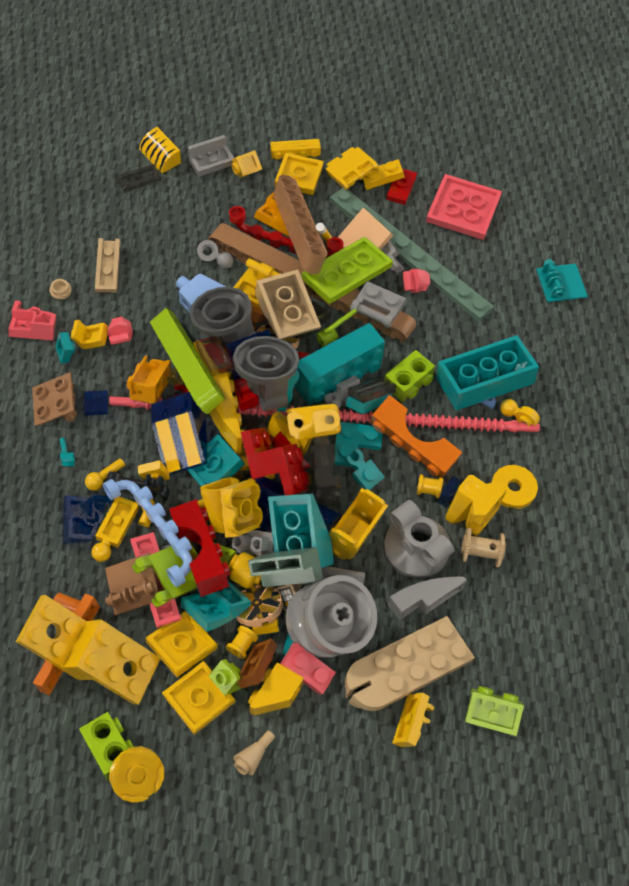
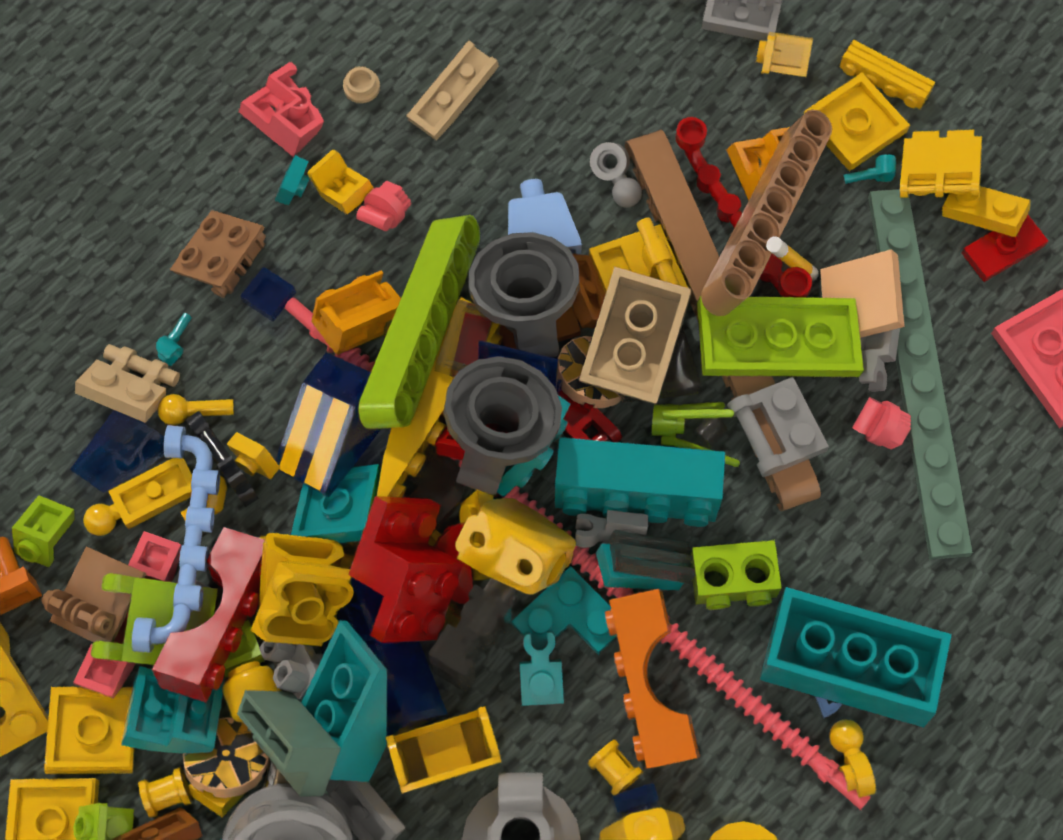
camera: 45 degrees right, 10 degrees up
(61, 483) = (123, 391): none -> tan plate
(76, 577) = (40, 530): none -> lime bracket
(327, 186) = (884, 171): none -> teal hand

